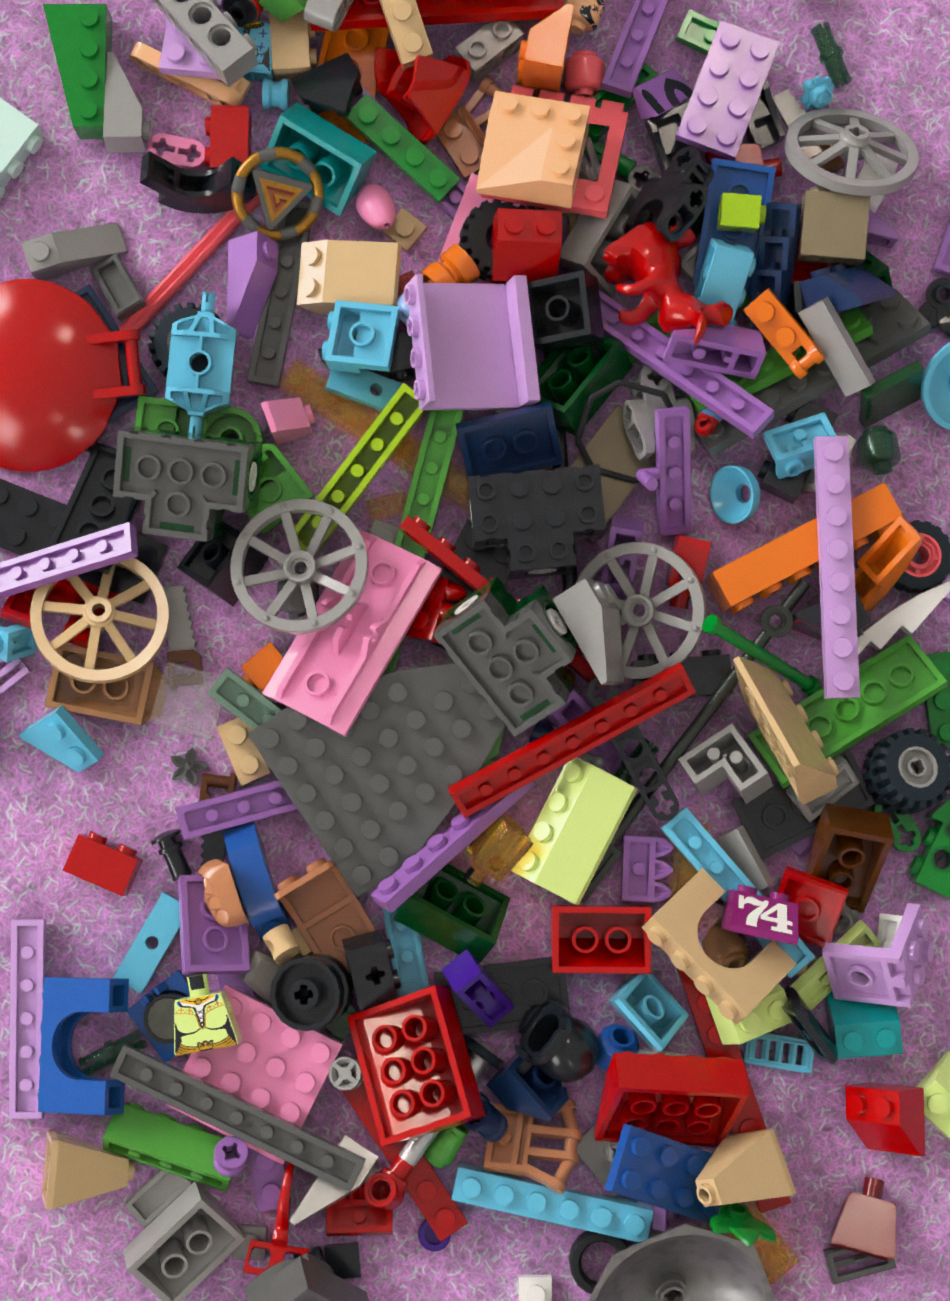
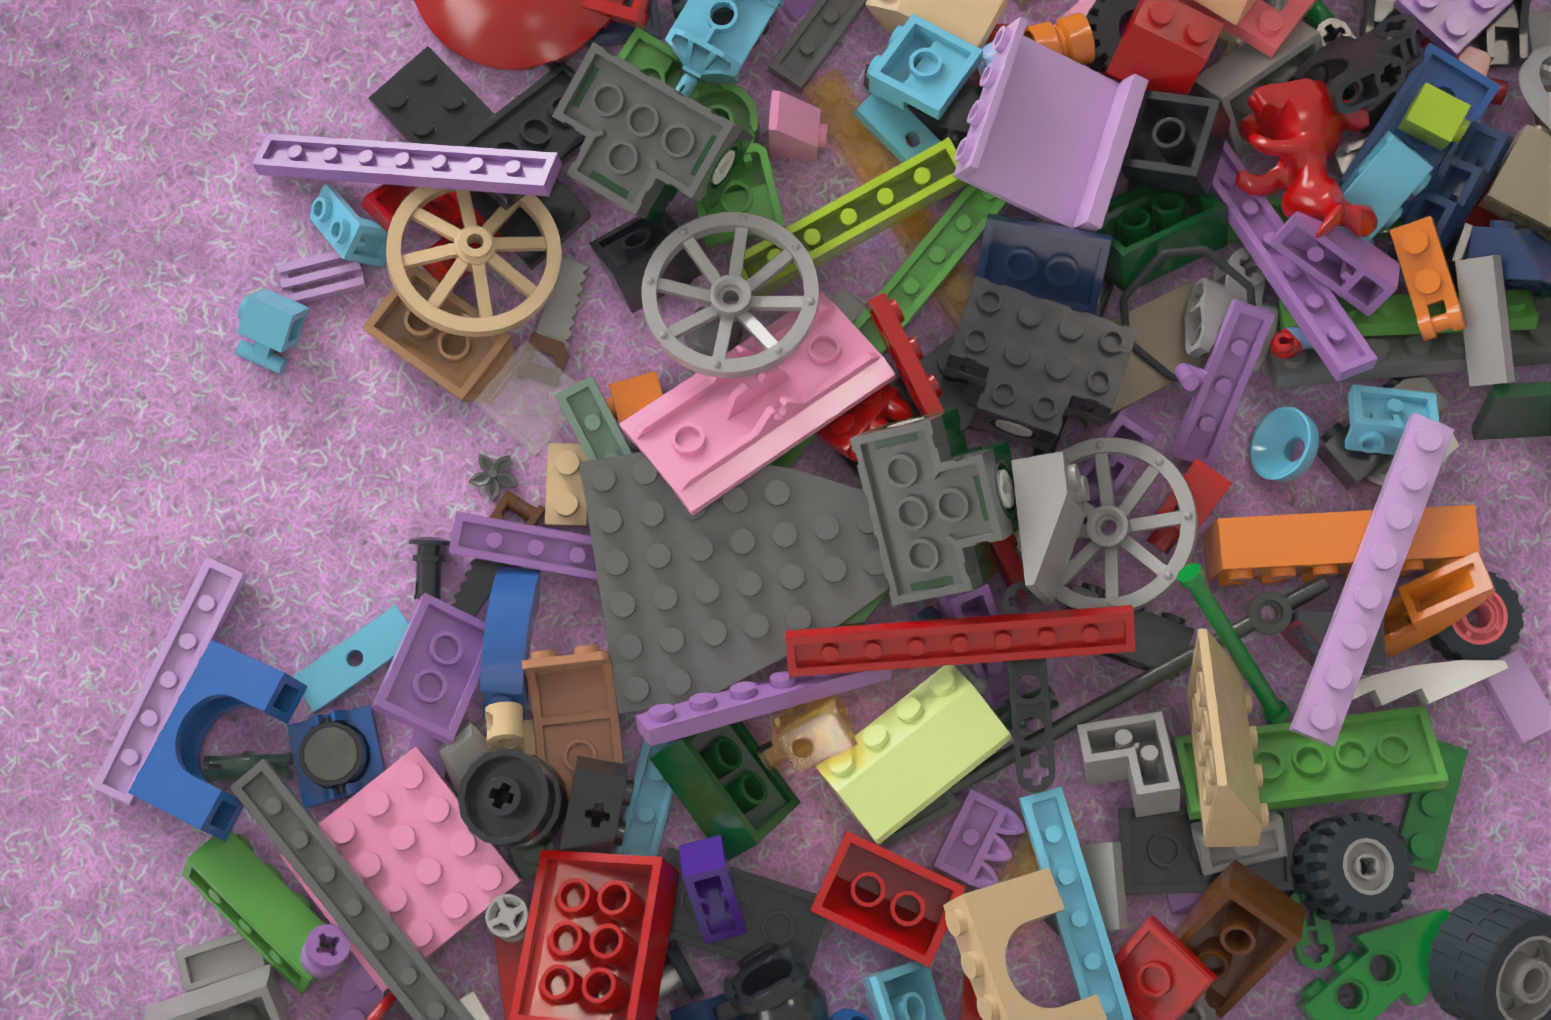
camera: 30 degrees right, 5 degrees down
(63, 740) = (365, 377): medium azure wing -> none
(80, 1170) = (145, 888): tan slope -> none
(102, 863) = (342, 541): red brick -> none
(204, 1019) = (371, 771): torso -> none
(223, 894) = (462, 636): nougat piece -> none
(386, 505) = (863, 279): clear yellow piece -> none
(726, 947) = (1037, 976): medium nougat head -> none
(761, 916) = (1096, 958): magenta slope -> none
(878, 450) = (1481, 470): clear green head -> none

